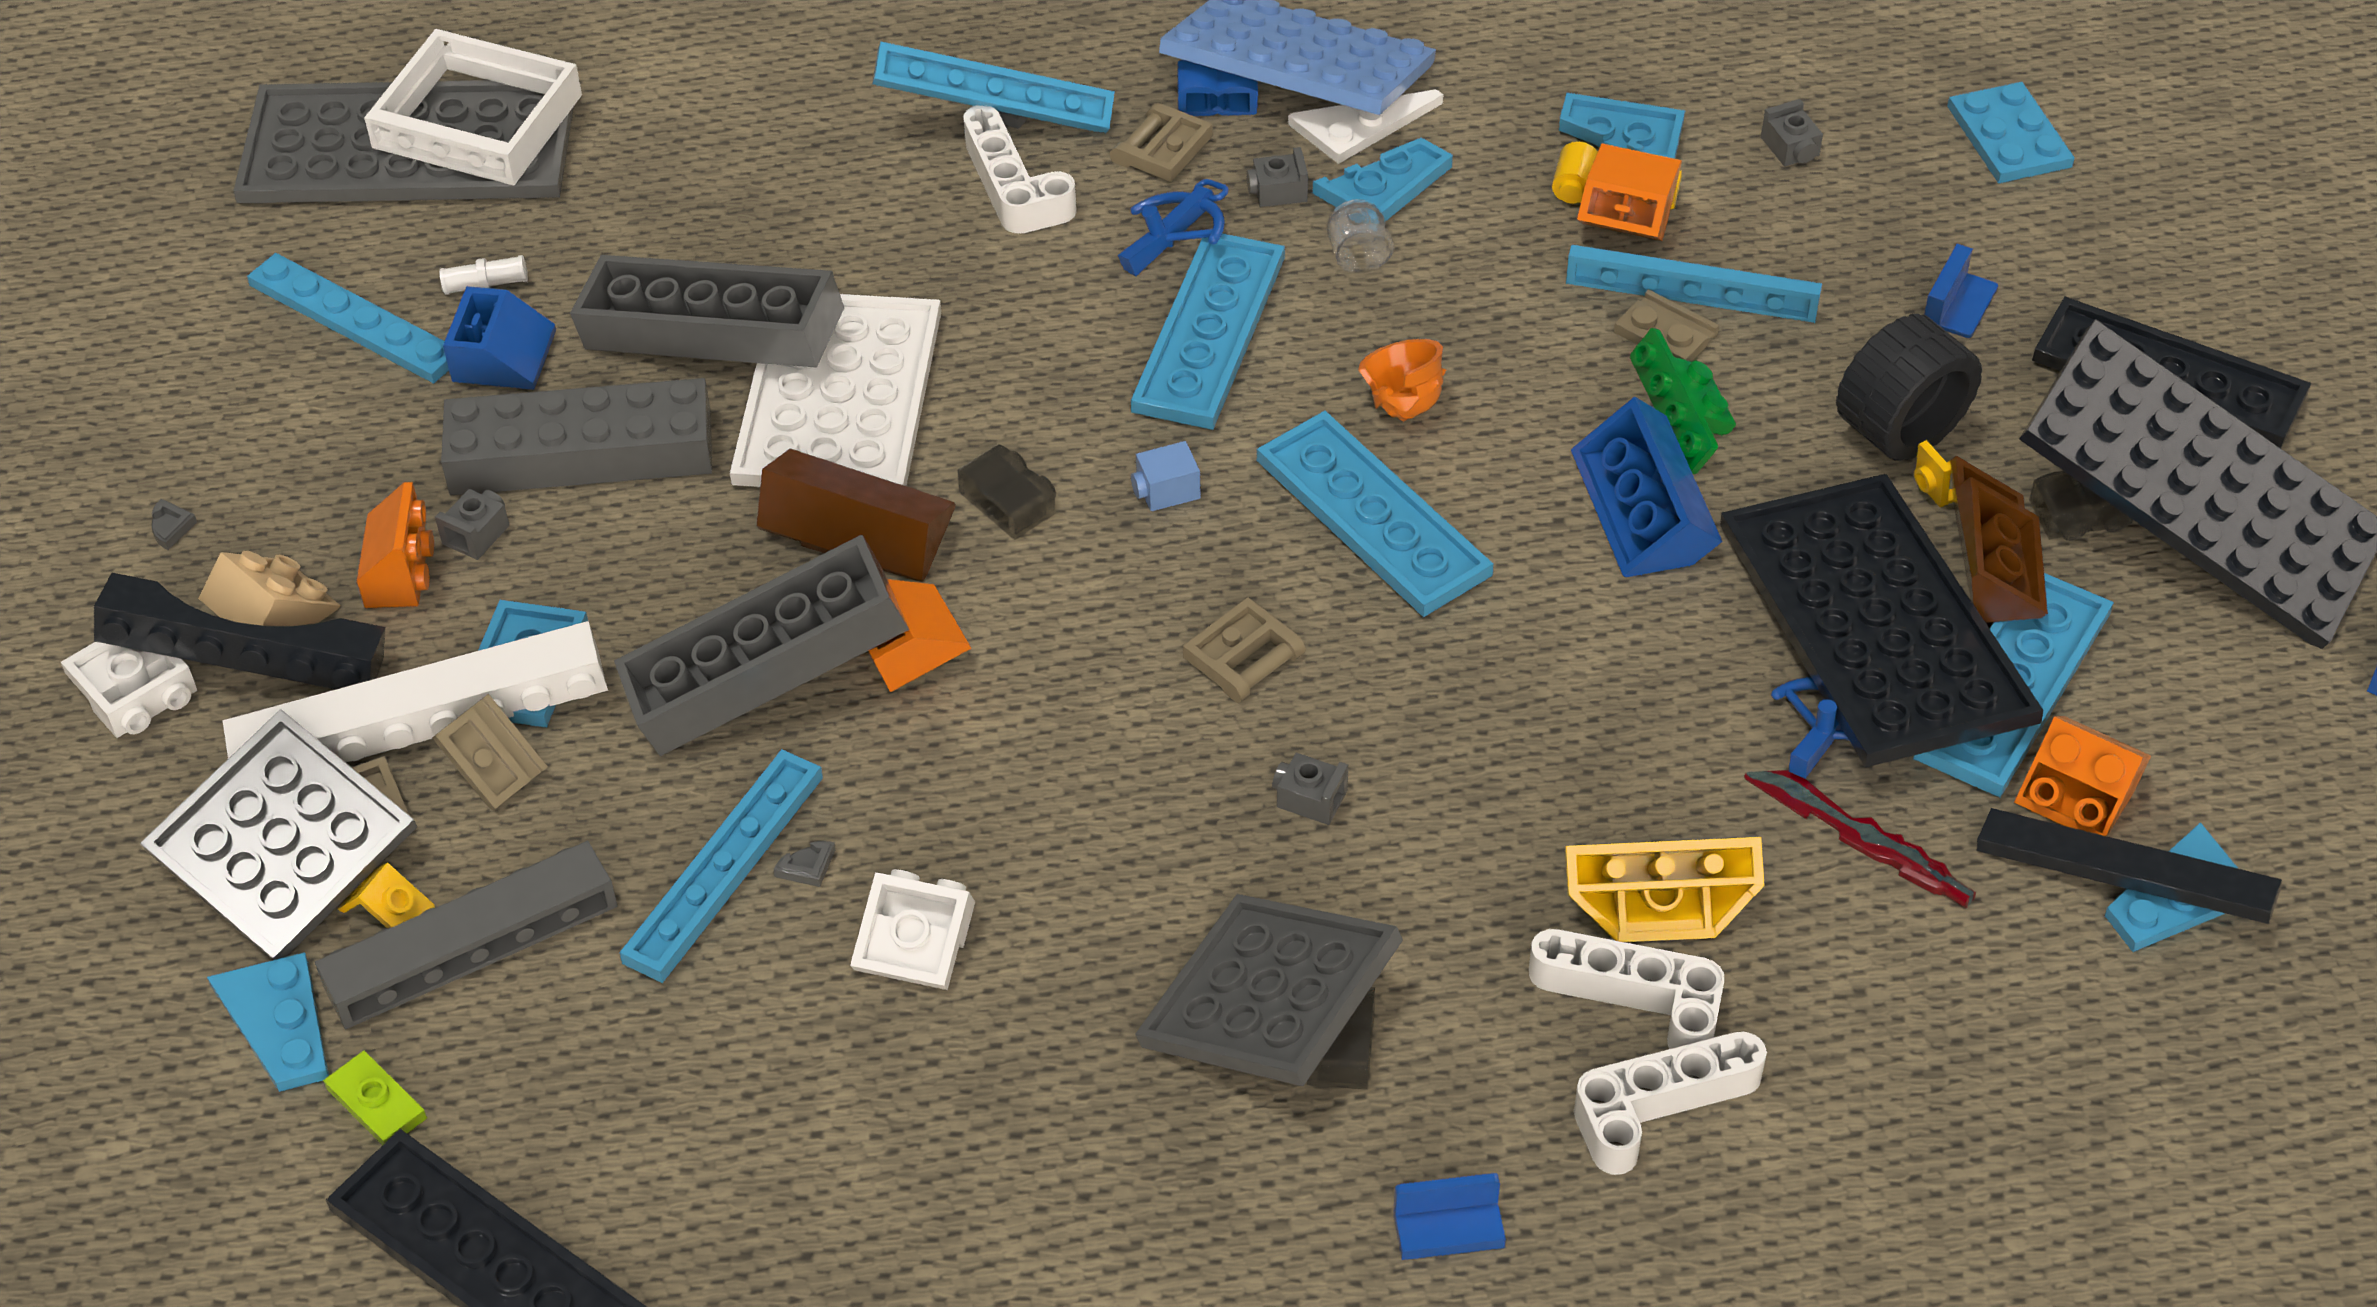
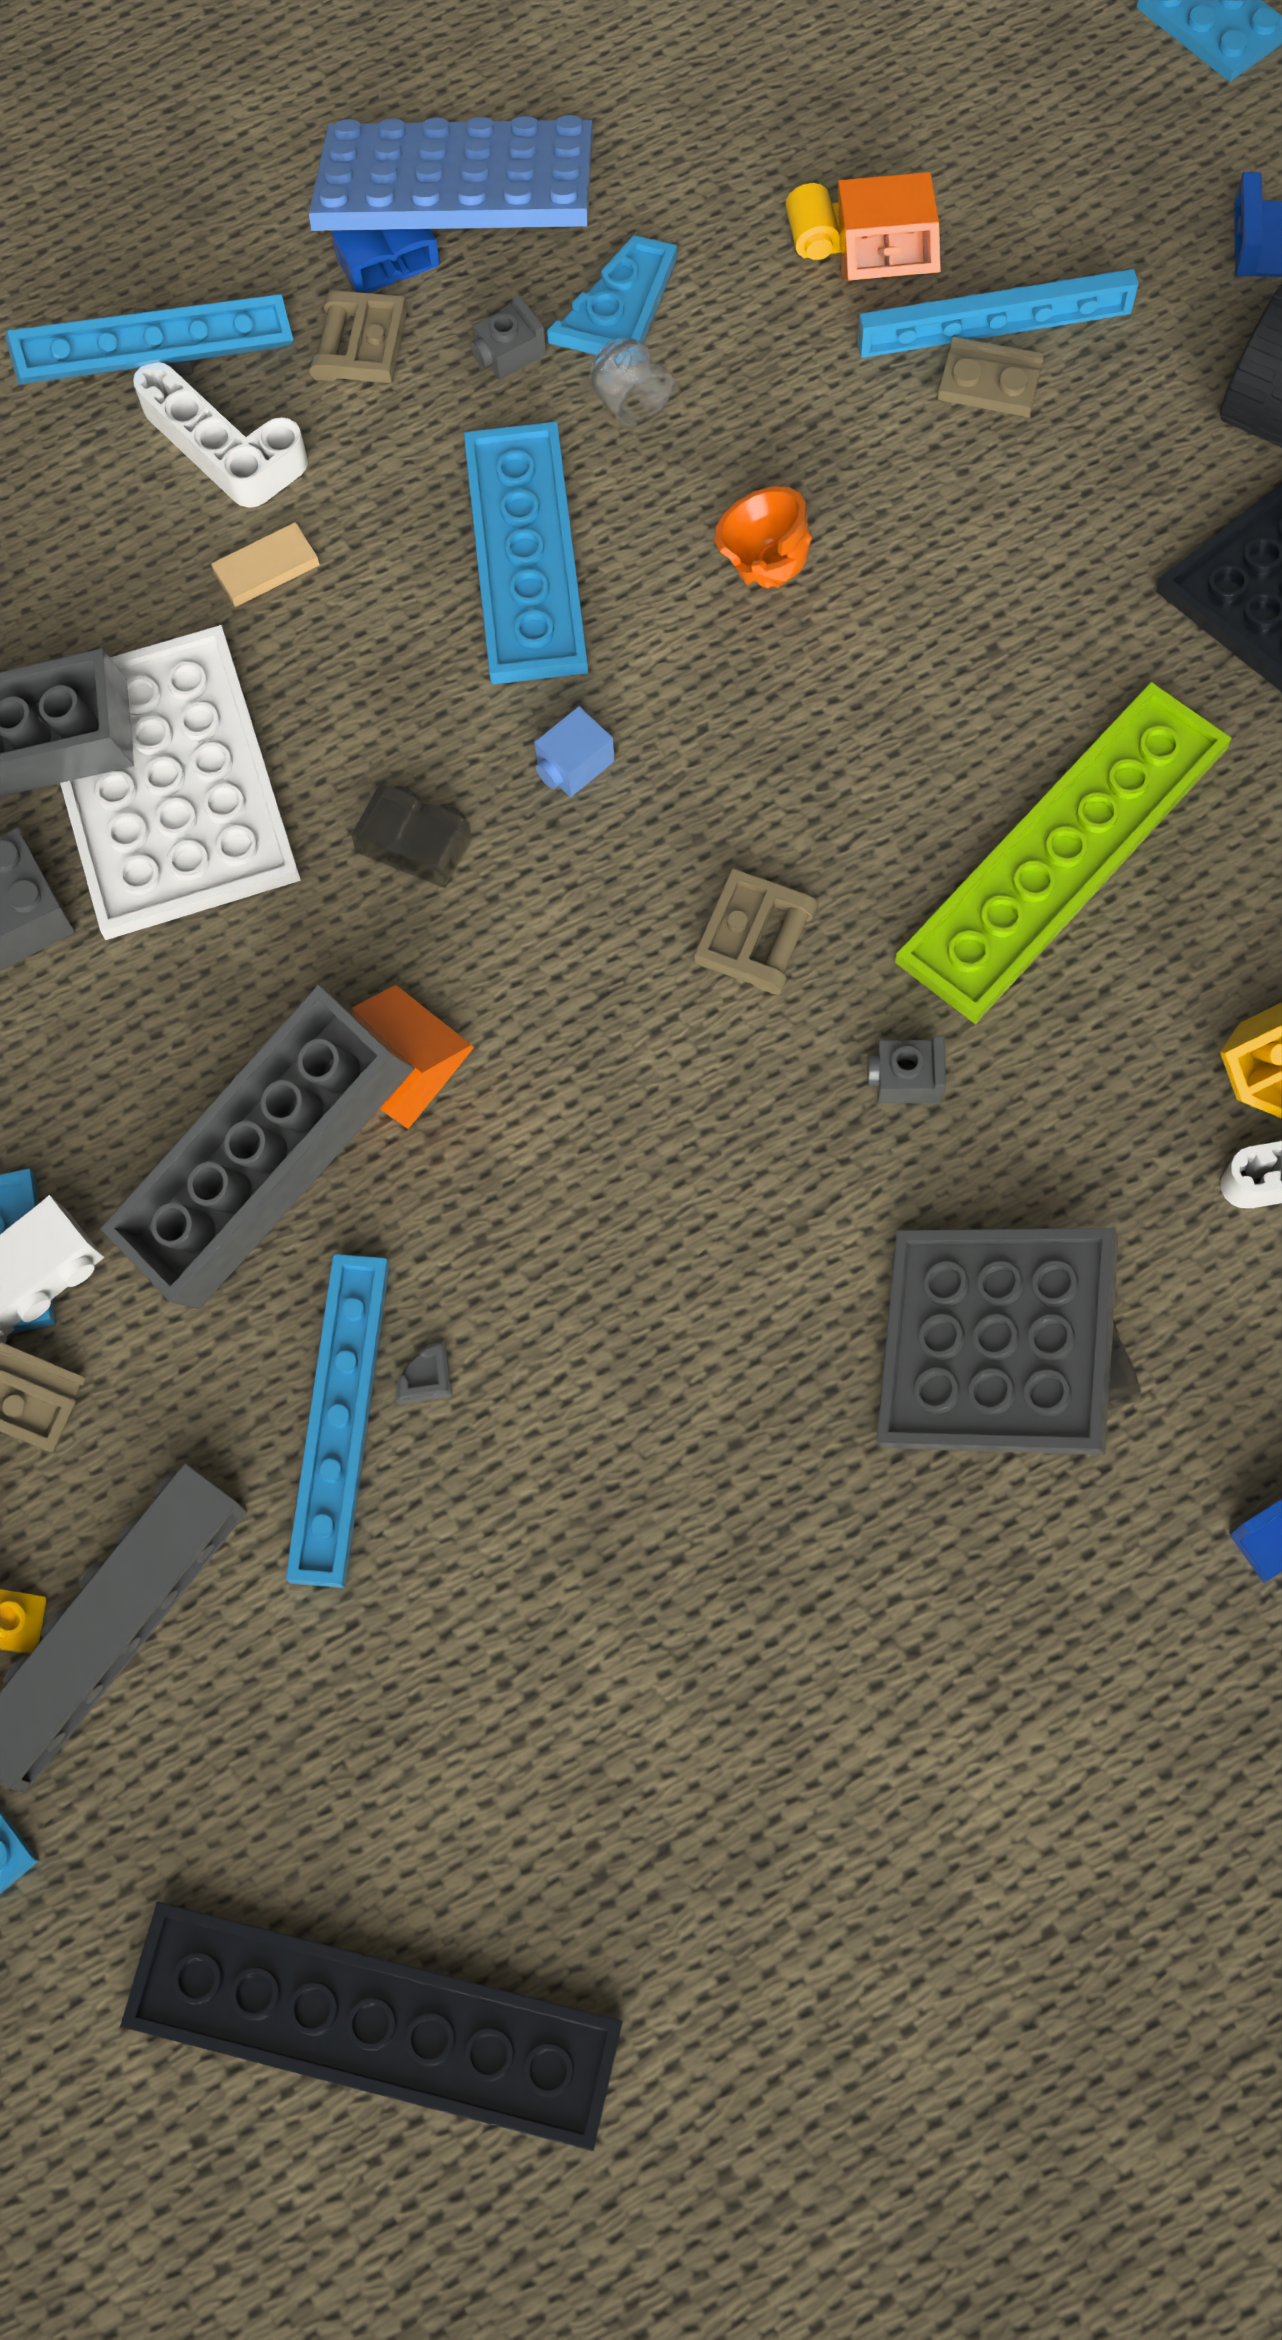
camera: 20 degrees left, 20 degrees up
(374, 1098) = (105, 1868): lime plate -> none
(833, 504) = (263, 930): reddish brown slope -> none
(913, 929) = (585, 1416): white plate -> none
(1000, 273) = (265, 564): none -> tan tile
(1170, 229) = (421, 443): blue piece -> none
(1347, 130) = (548, 254): white wing -> none
(1375, 513) = (807, 712): dark azure plate -> none
(1530, 679) = (1062, 852): none -> lime plate
(1622, 124) = (832, 146): dark azure wing -> none
(1645, 492) = (1069, 584): blue slope -> none
(1685, 395) = (1052, 458): green bracket -> none
(1791, 133) = (1006, 96): dark grey brick -> none

